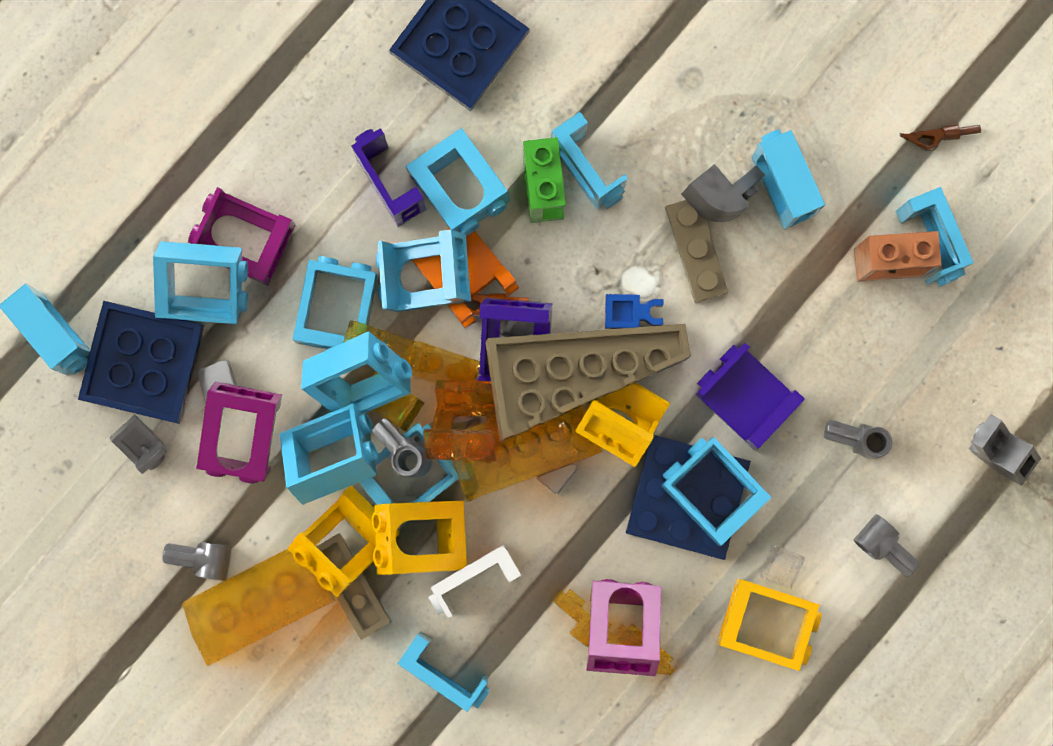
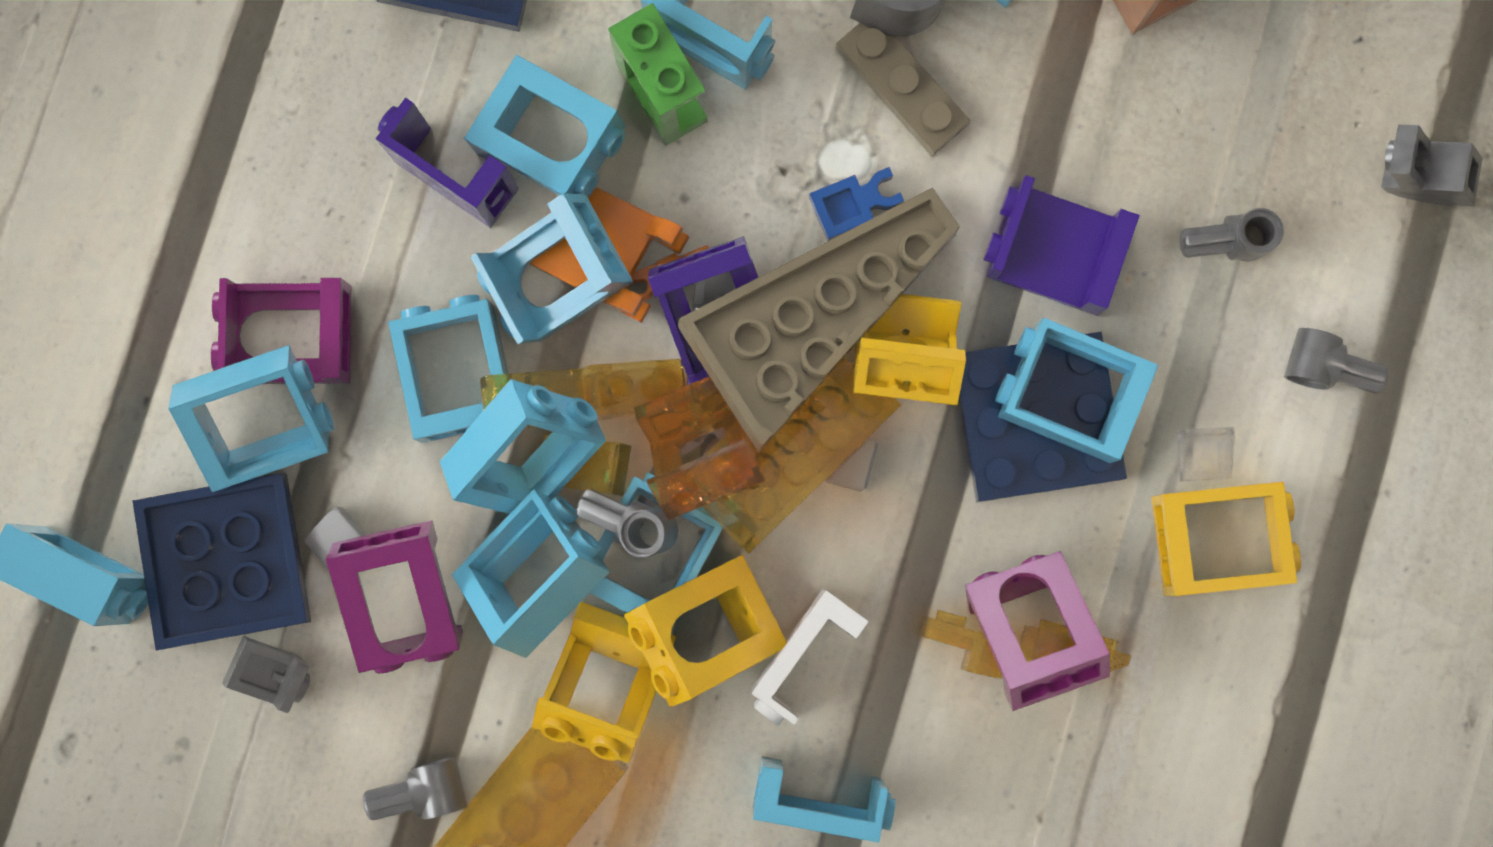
camera: 20 degrees left, 0 degrees up
(358, 598) = (660, 750): dark tan plate -> none

